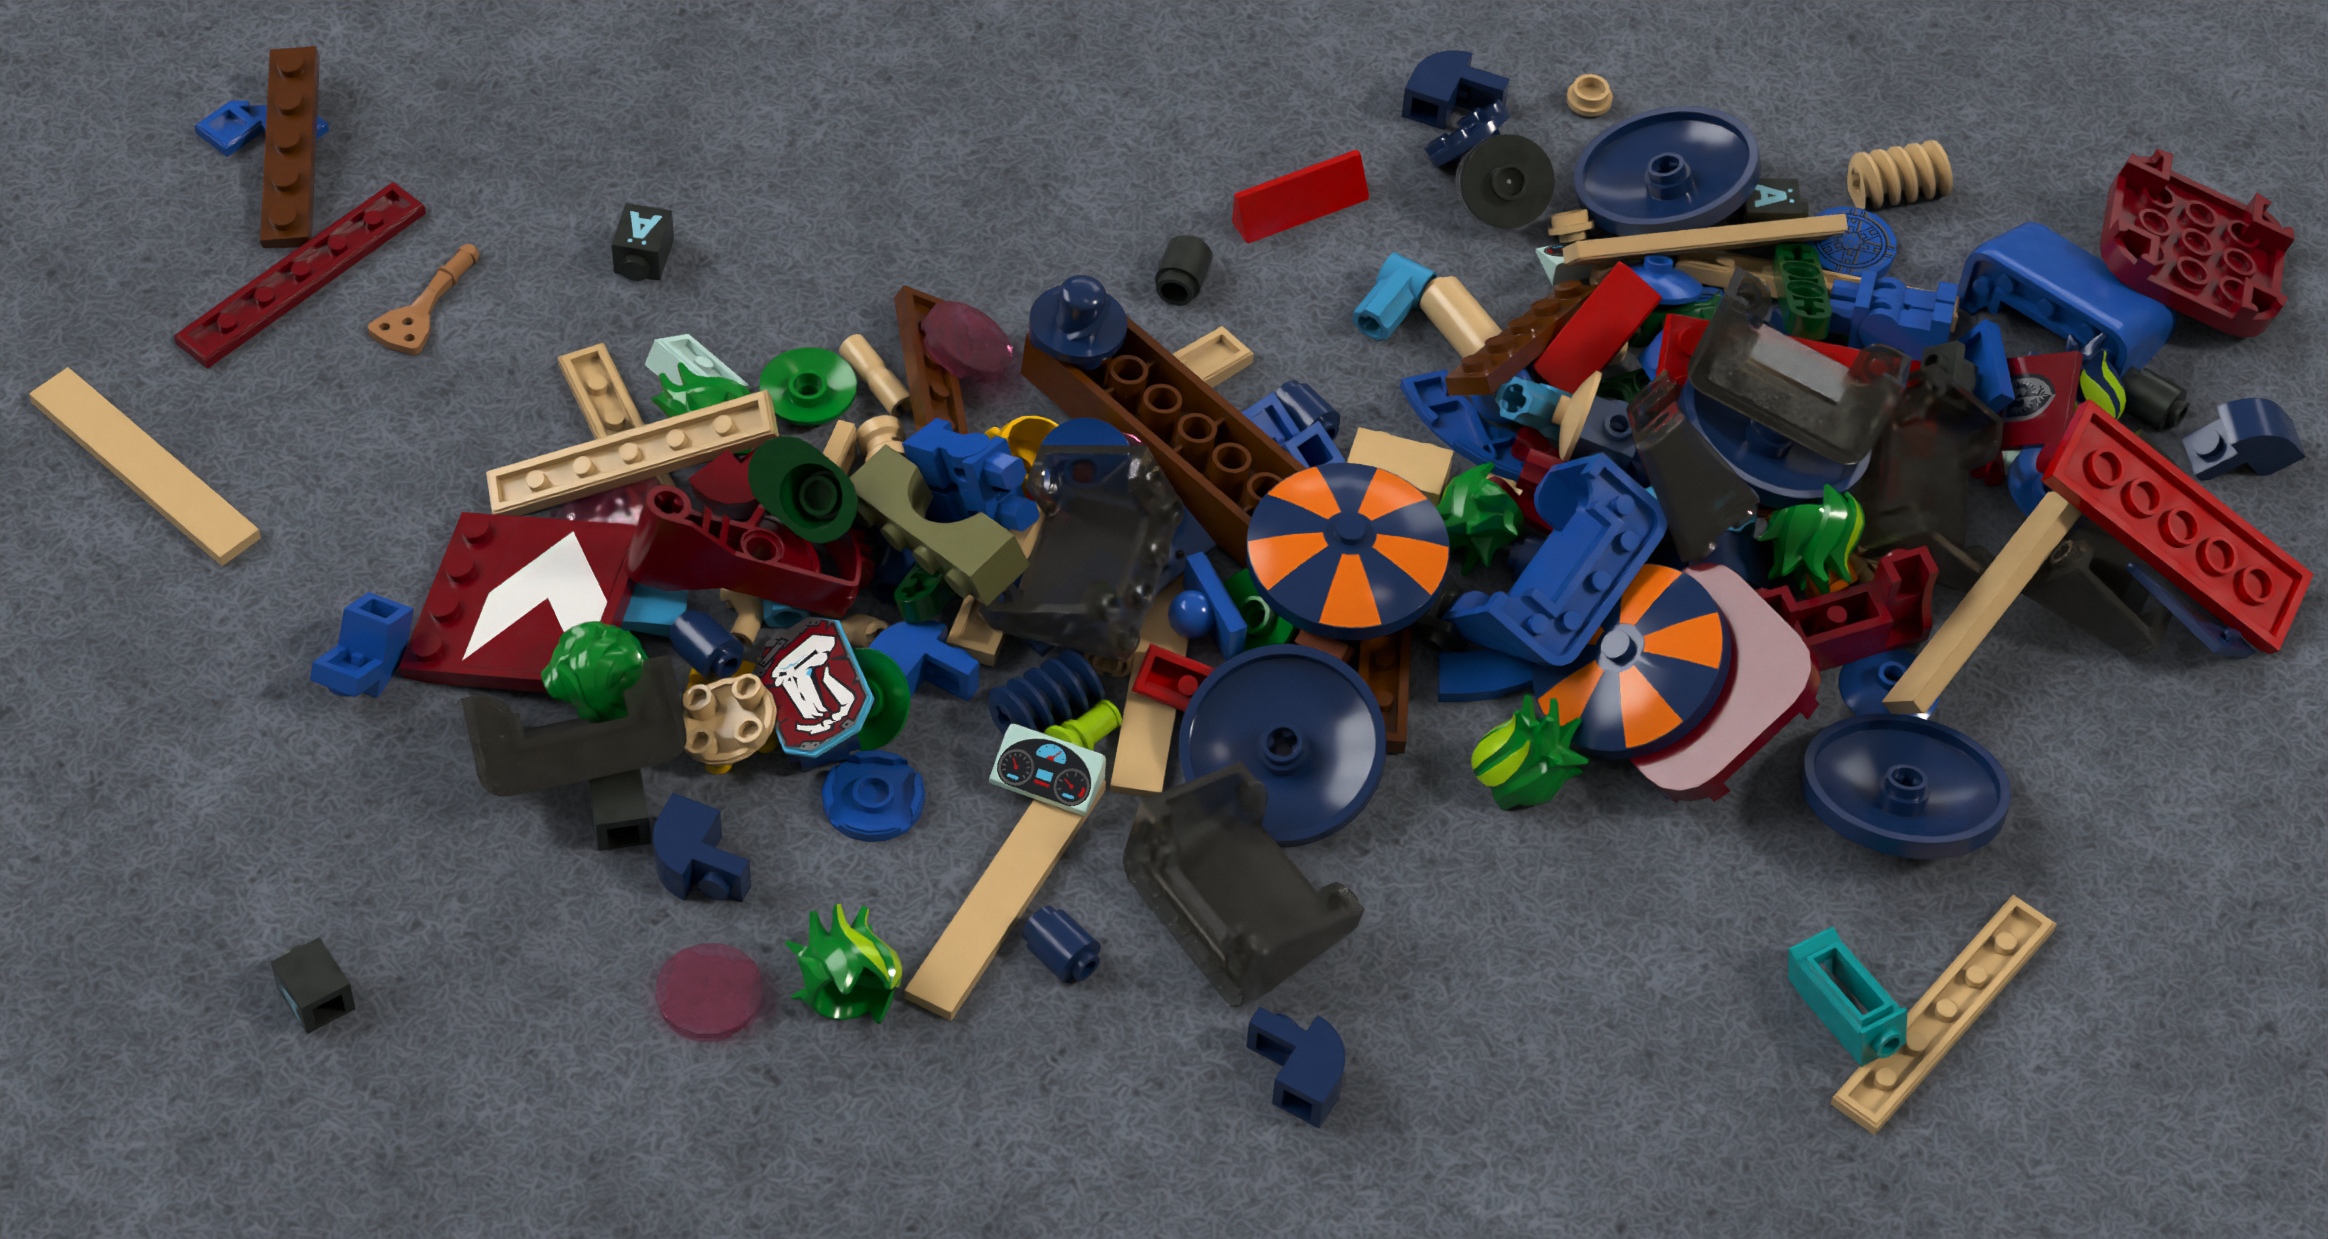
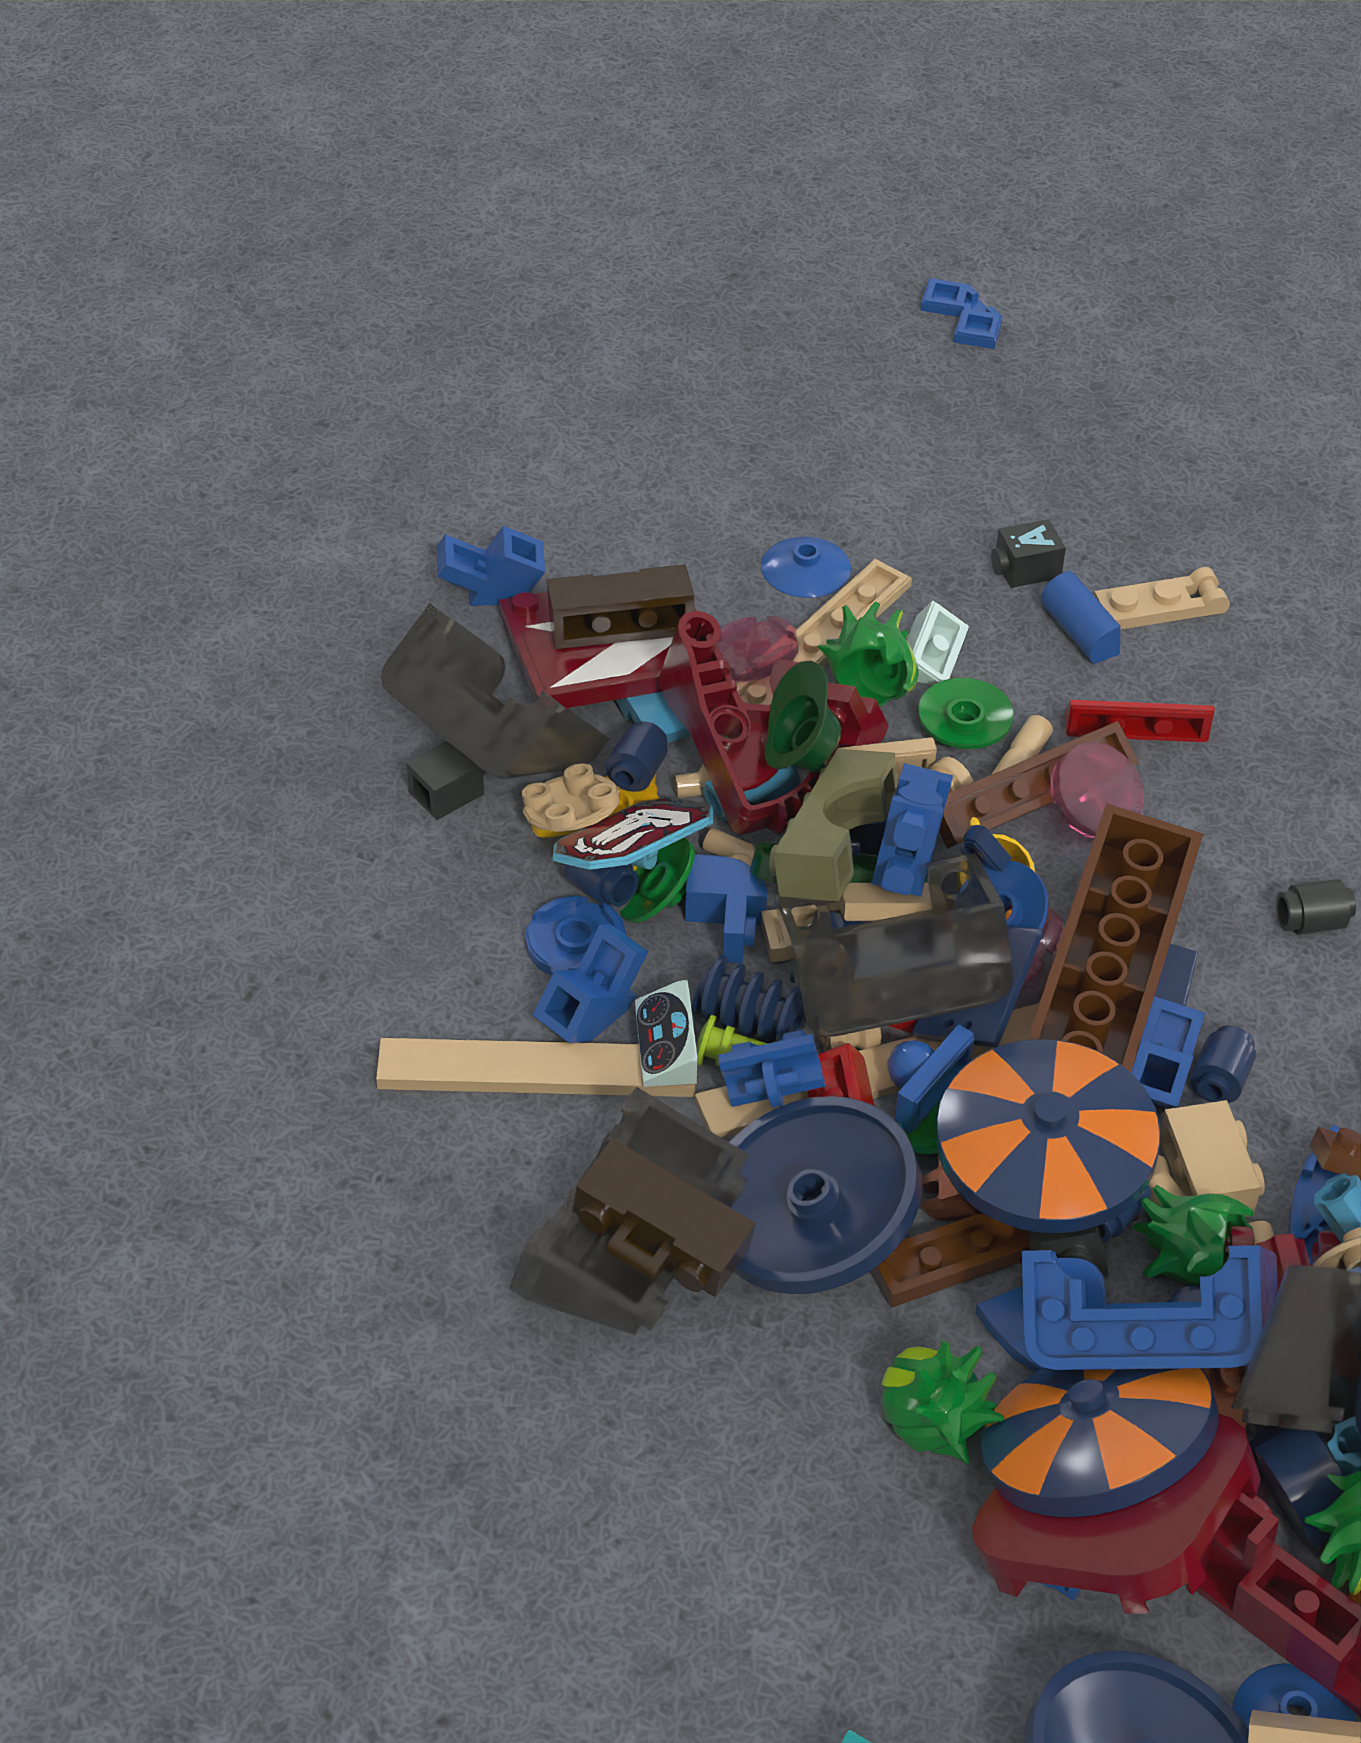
camera: 65 degrees right, 5 degrees down
(145, 466) = (591, 394): tan tile -> none
(290, 147) = (948, 329): reddish brown plate -> none
(299, 275) = (841, 392): dark red tile -> none
(313, 984) = (165, 676): pearl dark grey brick -> none
(418, 313) = (827, 473): medium nougat piece -> none
(516, 570) = (618, 606): none -> dark brown piece
(522, 427) = (806, 567): none -> blue dish
(593, 669) = (557, 674): green hair -> none
(632, 455) = (791, 628): tan tile -> none
(688, 855) = (428, 834): dark blue brick -> none
(709, 992) = (306, 915): clear pink tile -> none
(749, 246) = (1082, 617): none -> blue brick
(759, 185) = (1165, 599): none -> tan plate
(847, 968) = (367, 980): green hair -> none
(899, 271) = (1141, 720): none -> red slope
(959, 801) = (590, 998): none -> blue brick
(1028, 438) = (985, 845): none -> dark blue tile
(1061, 944) = (492, 1125): dark blue brick -> none
(1078, 322) = (1142, 828): dark blue plate -> none
(1148, 711) = (771, 1069): none -> blue hips
(1215, 356) = (1221, 969): tan tile -> none
(1267, 855) = (661, 1220): none -> dark brown piece
(1310, 1062) = (469, 1371): dark blue brick -> none

